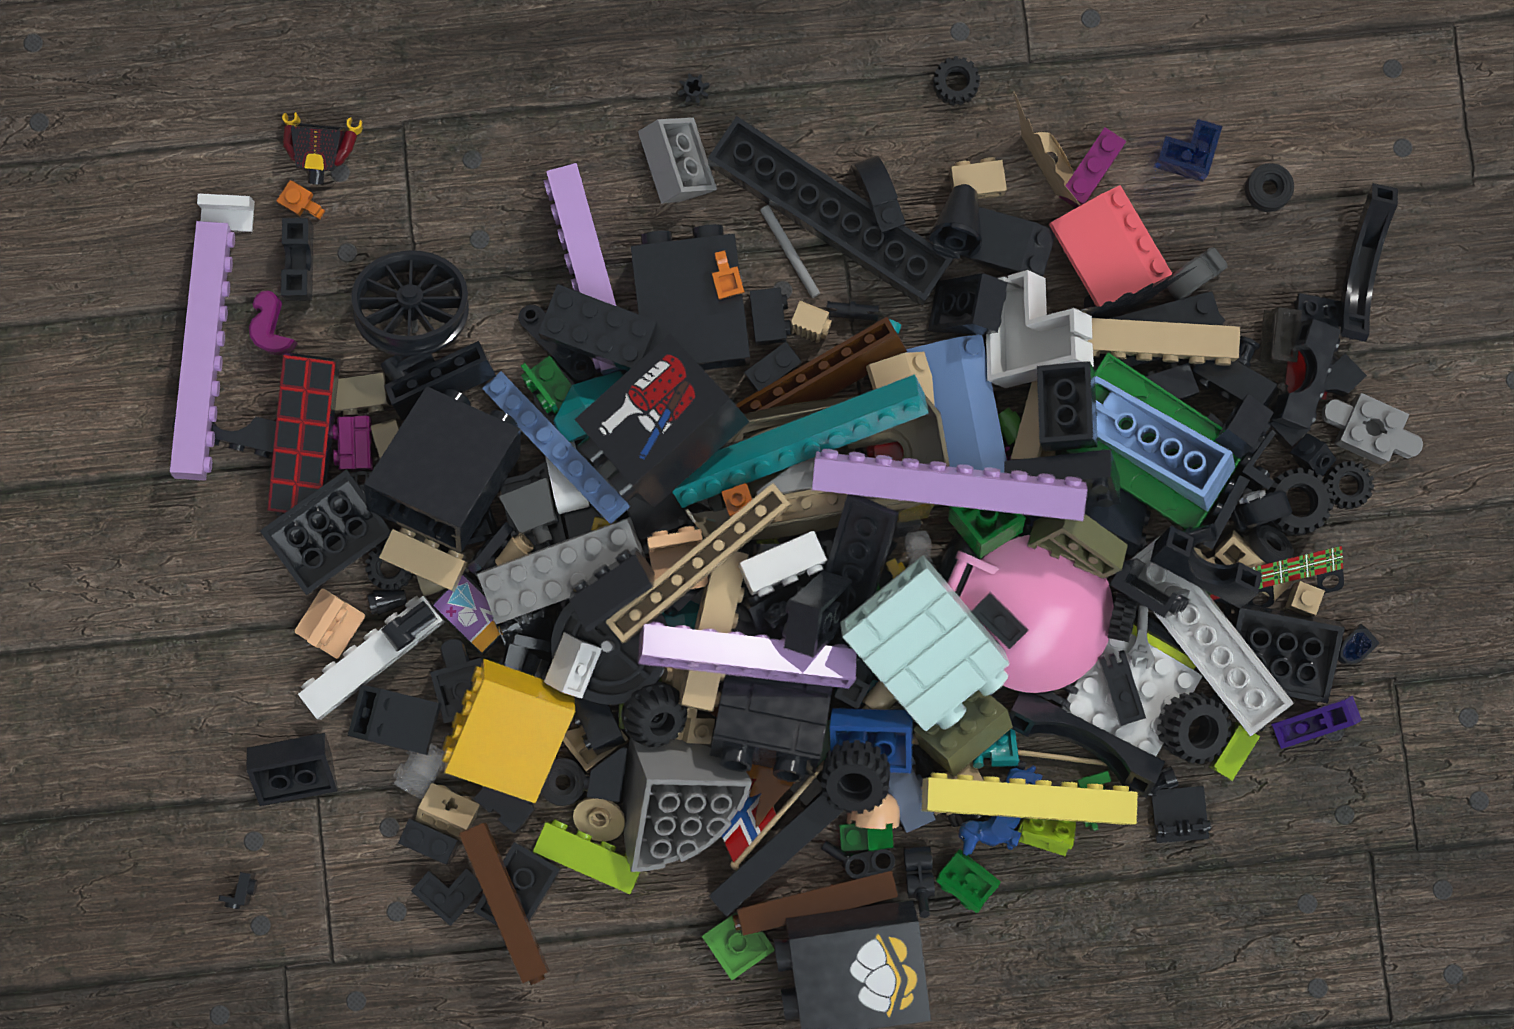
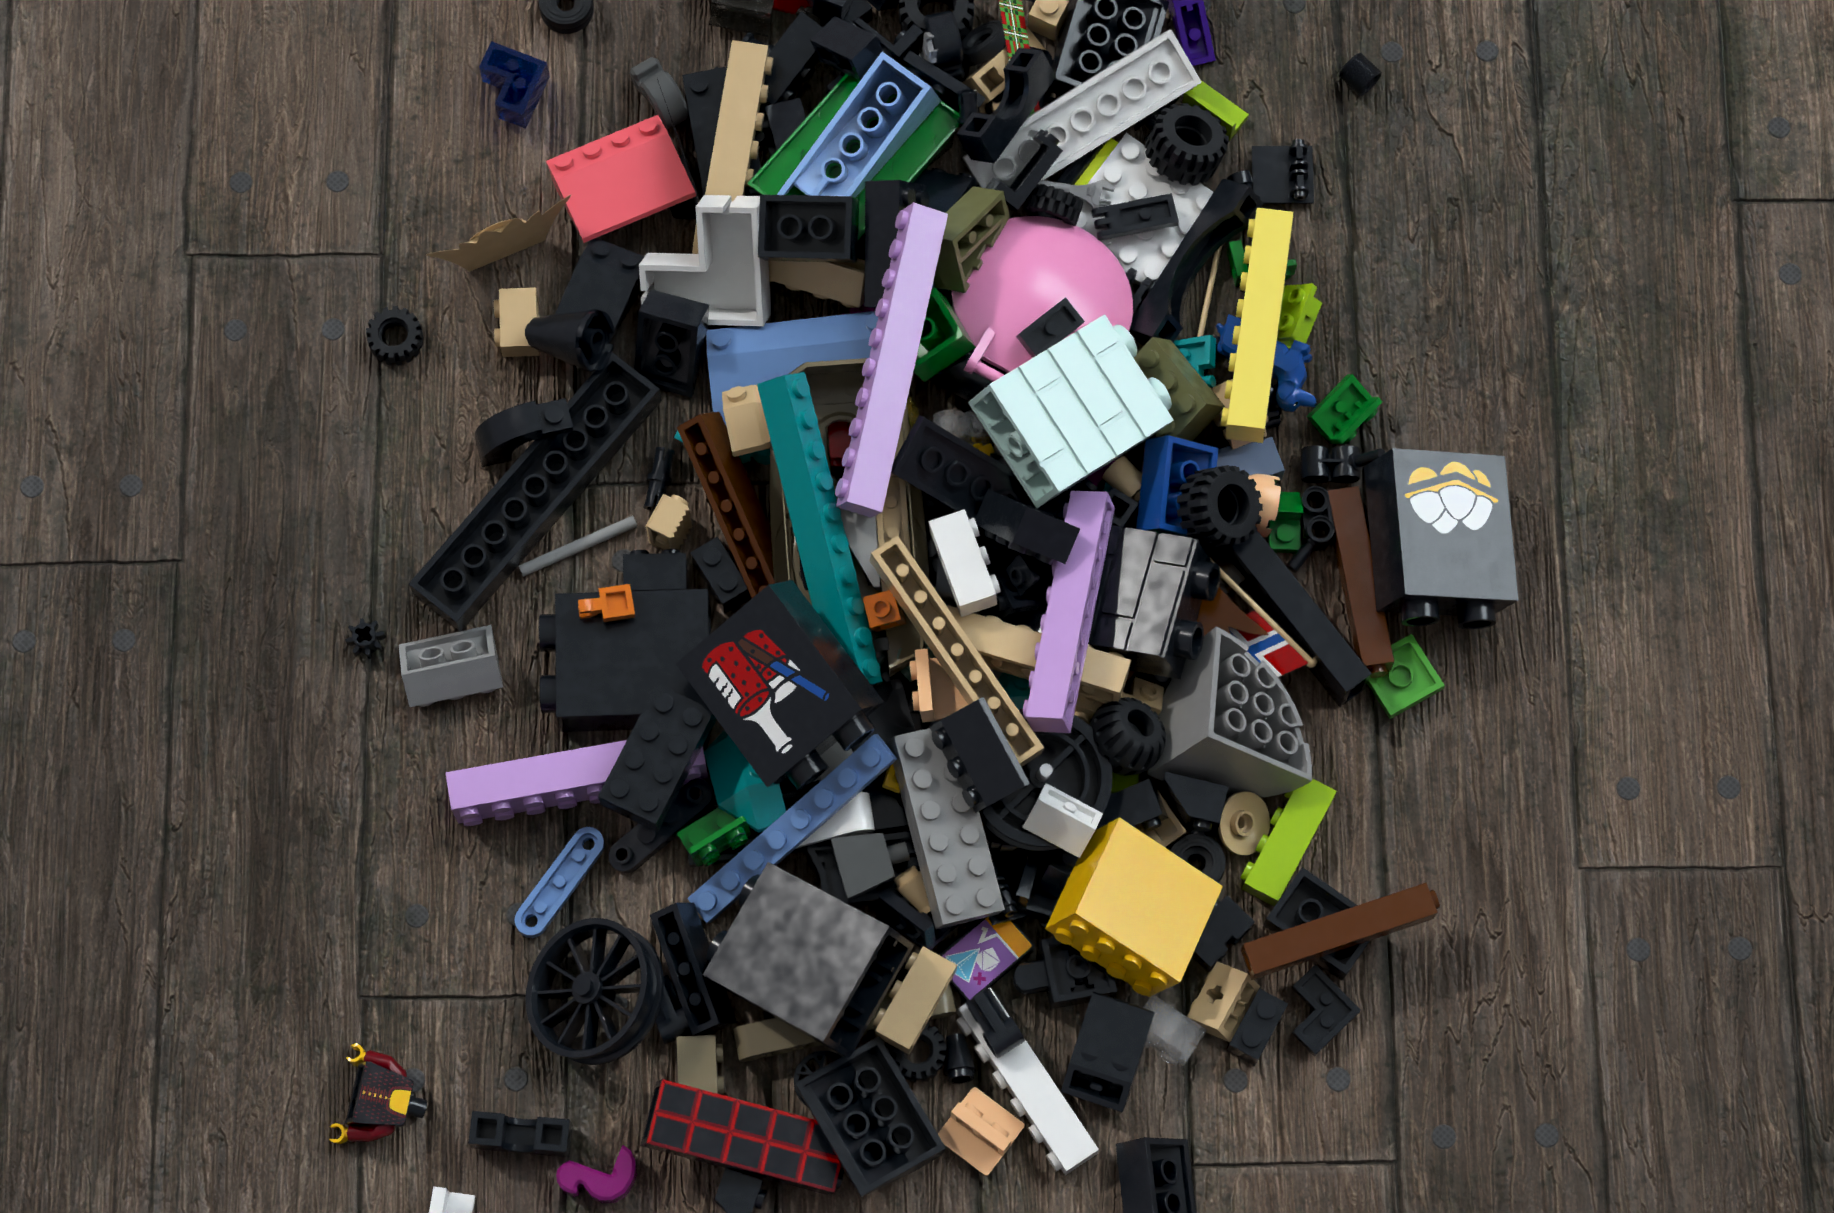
camera: 85 degrees left, 10 degrees down
(299, 199) = (441, 1133): orange plate -> none
(354, 443) = (761, 1082): magenta brick -> none
(505, 268) = (559, 882): none -> medium blue plate
(1009, 425) = (818, 308): bright green brick -> none
(1094, 166) = (517, 188): magenta brick -> none
(1279, 876) = (1360, 74): none -> black piece

